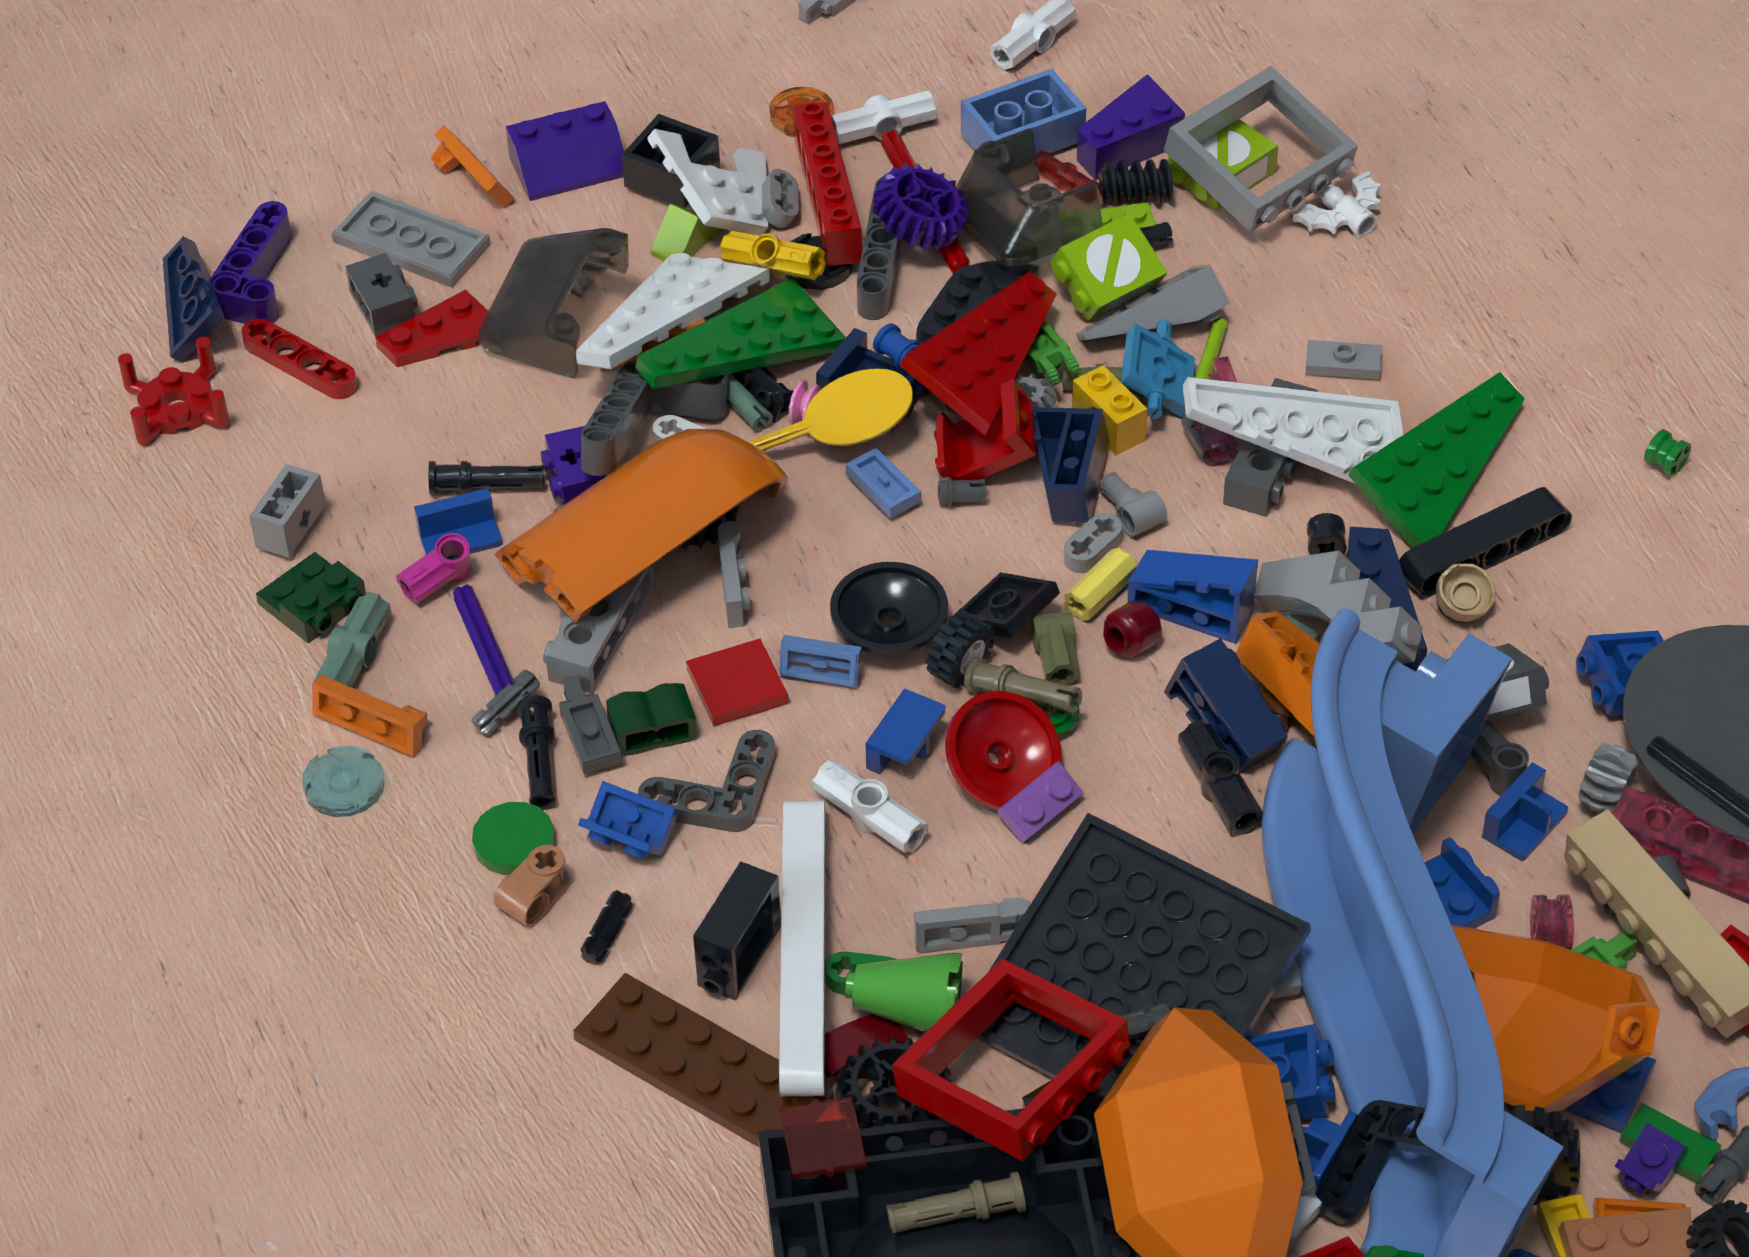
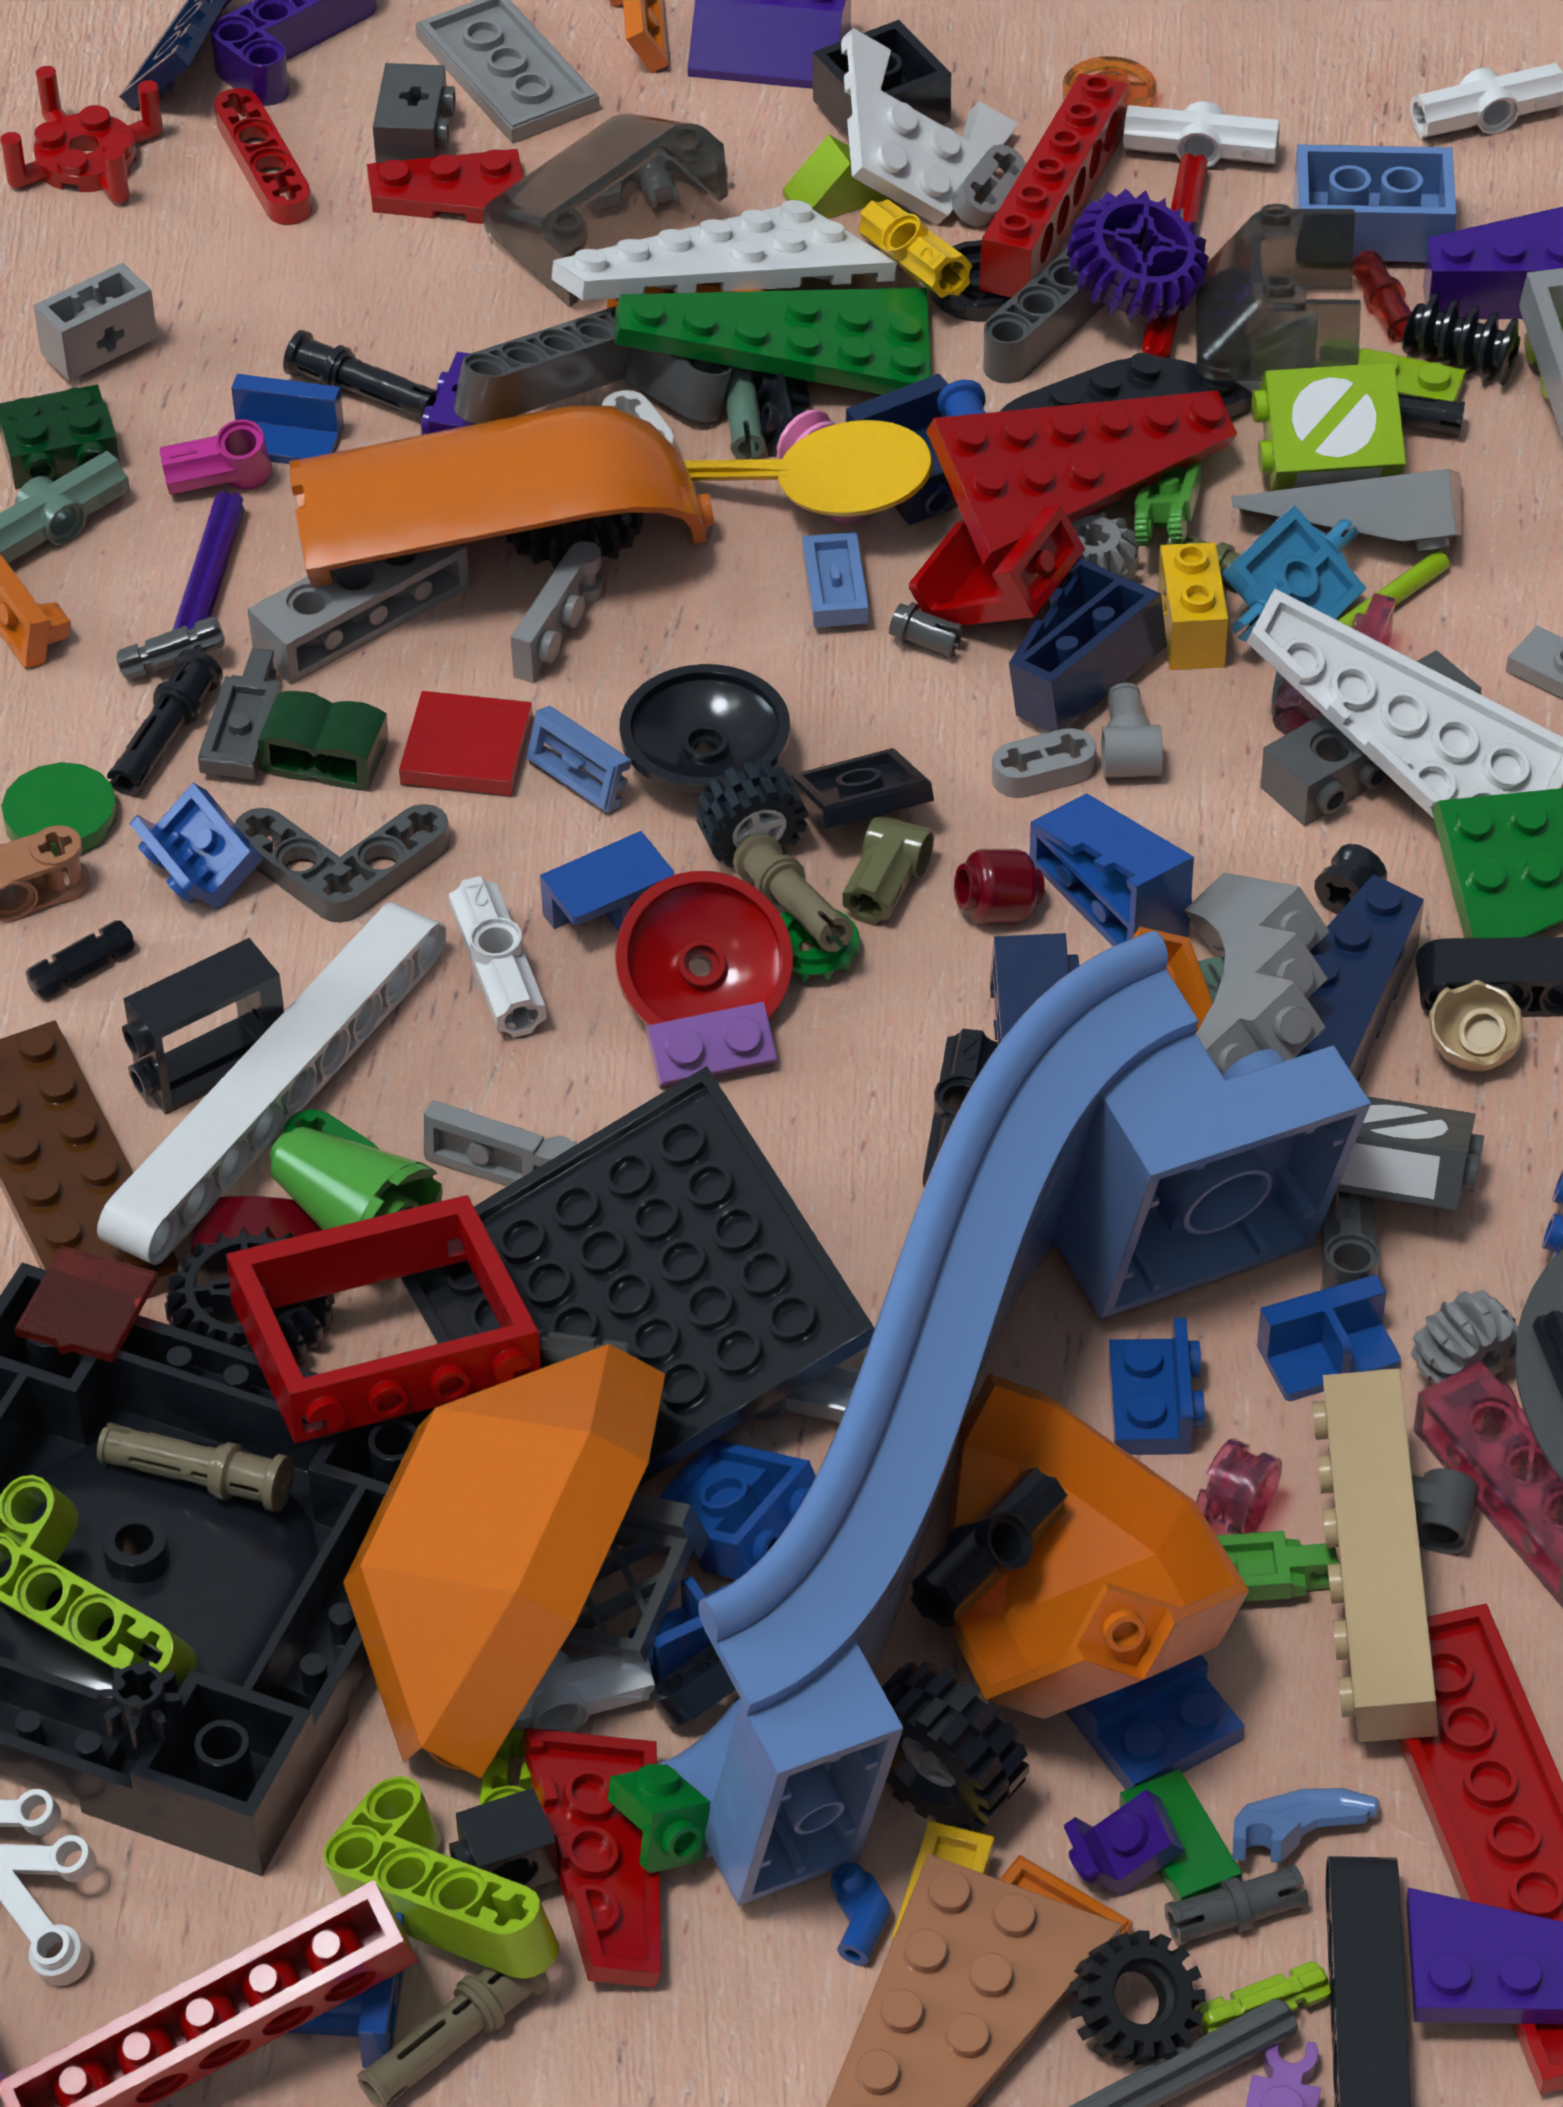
camera: 30 degrees right, 0 degrees up
(1100, 584) = (1001, 814): light yellow axle -> none

